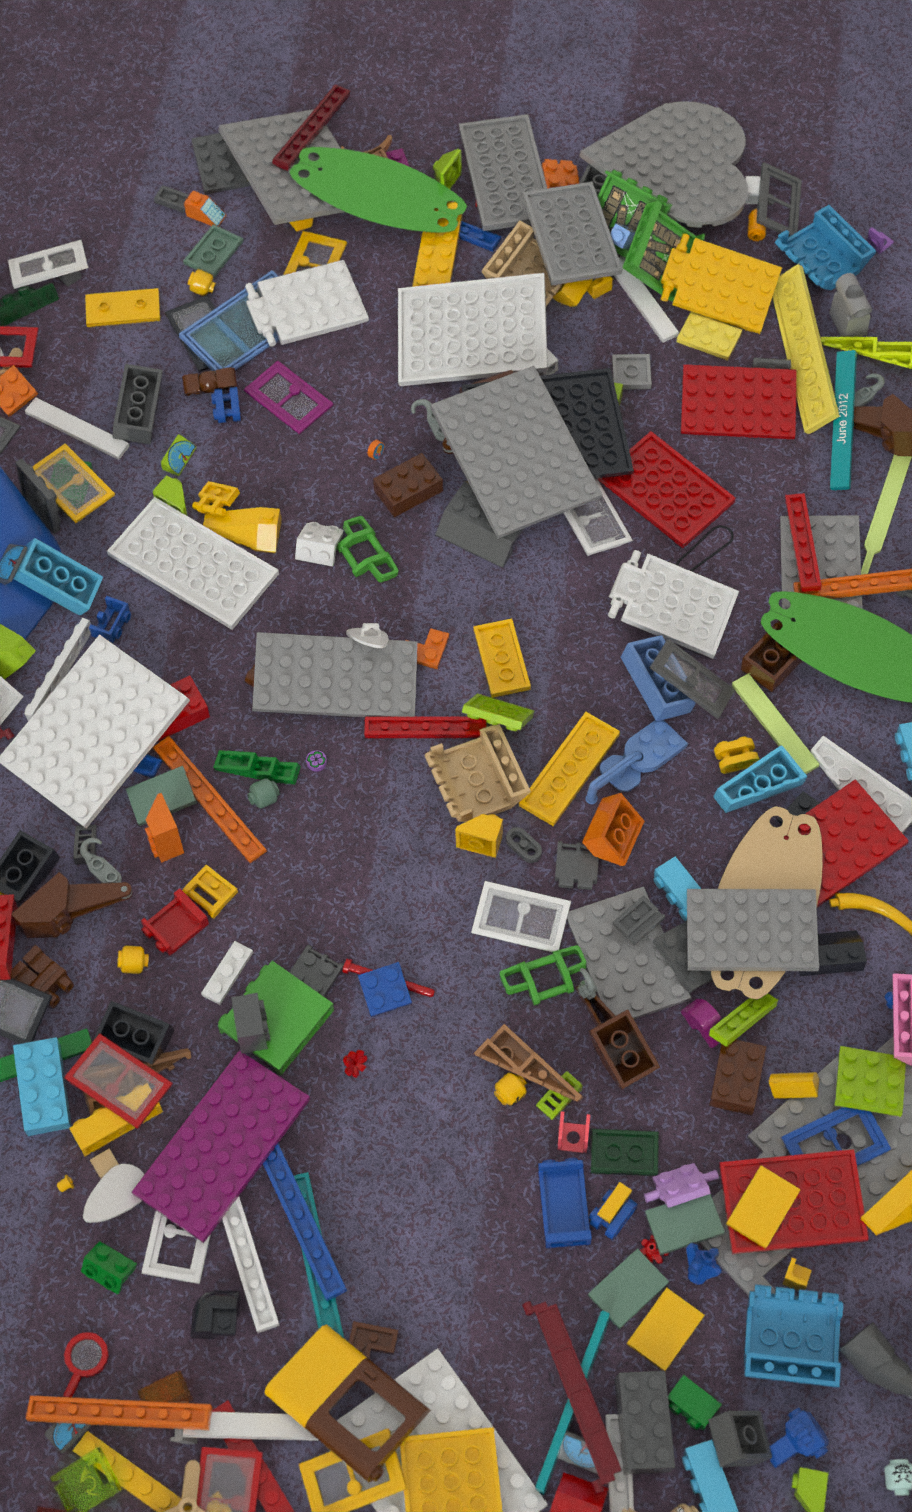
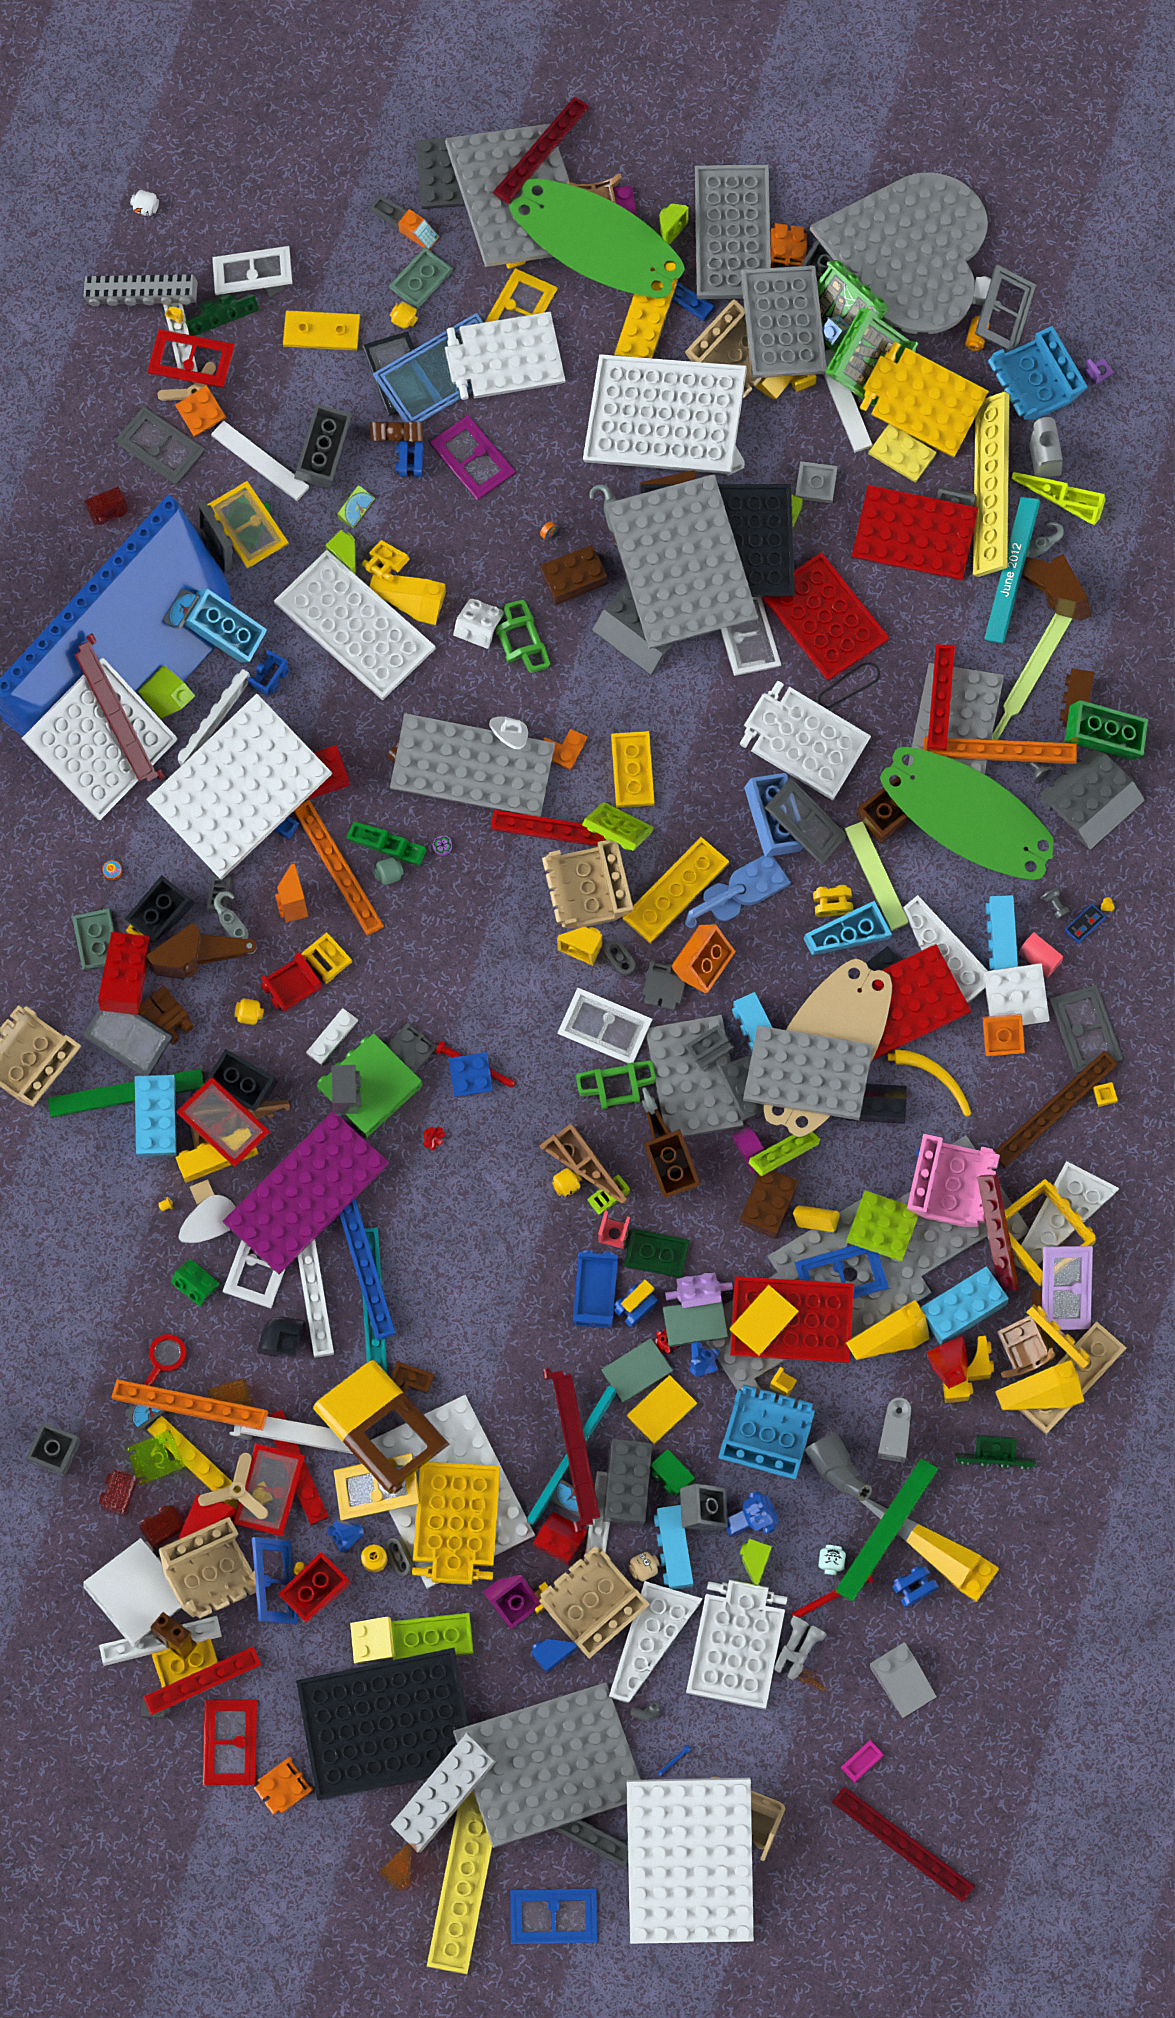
camera: 10 degrees right, 10 degrees up
(173, 786) = (303, 851): sand green tile -> none

